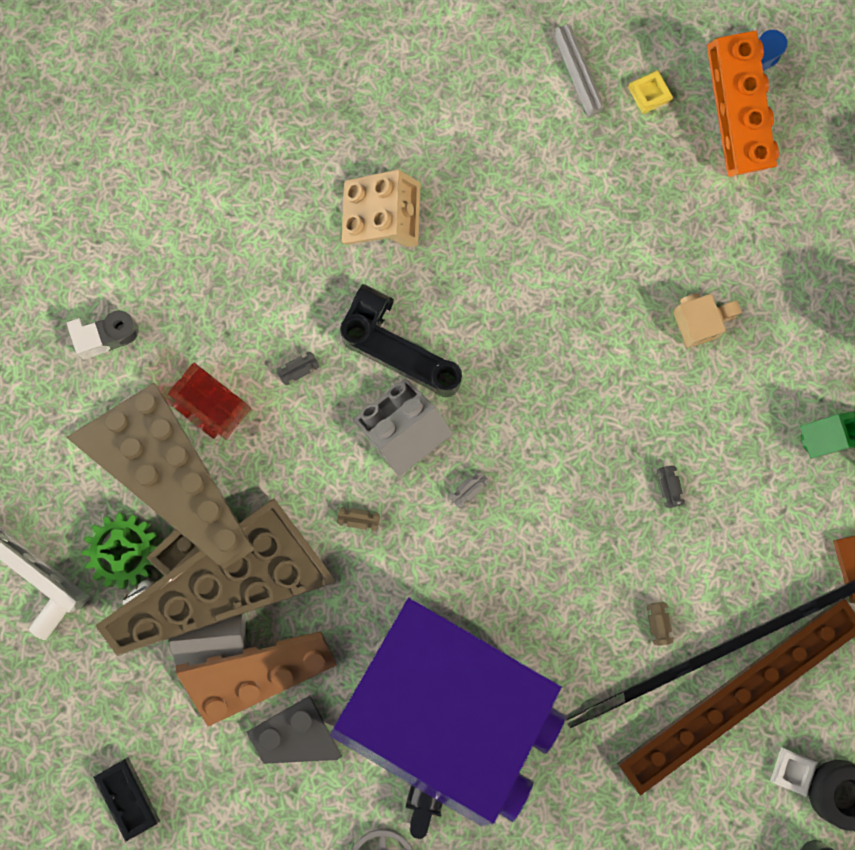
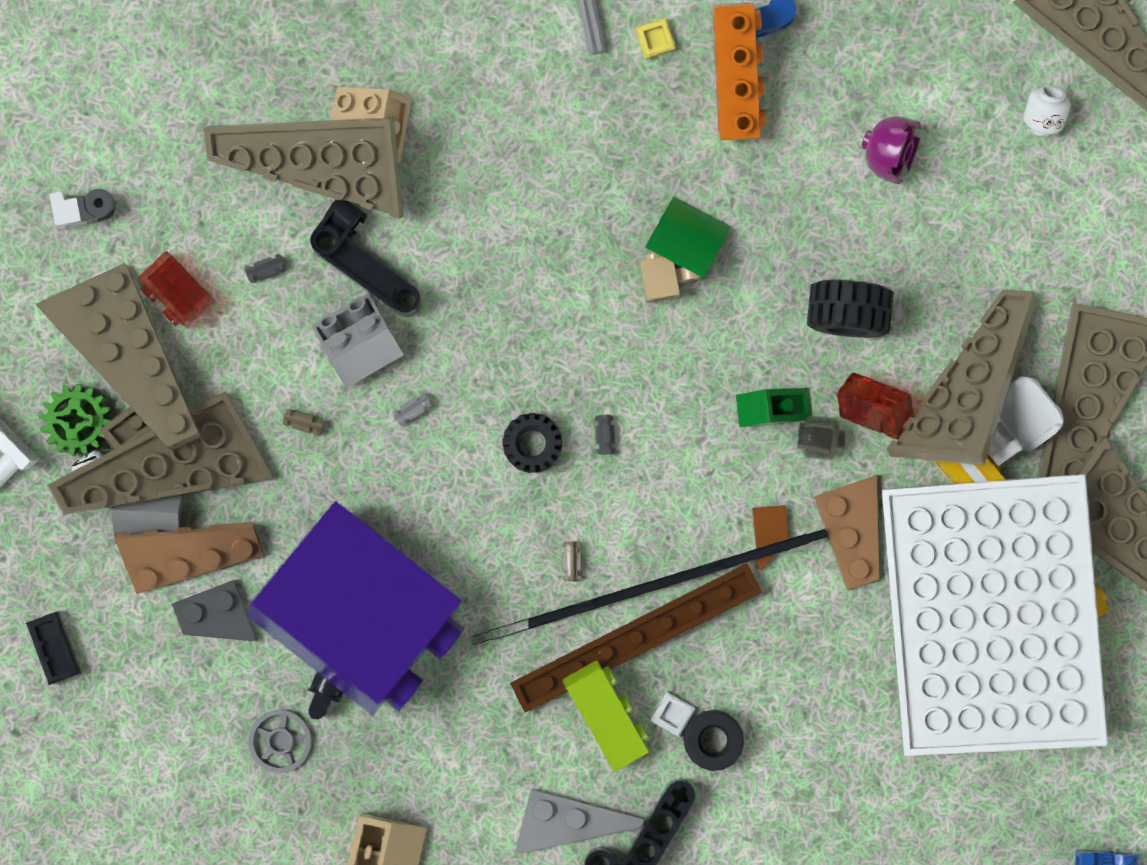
camera: 10 degrees right, 5 degrees up
(351, 245) = (327, 157): none -> dark tan wing
(617, 497) = (535, 422): none -> black tyre
(722, 275) = (688, 237): none -> green slope
(731, 786) = (607, 715): none -> lime brick

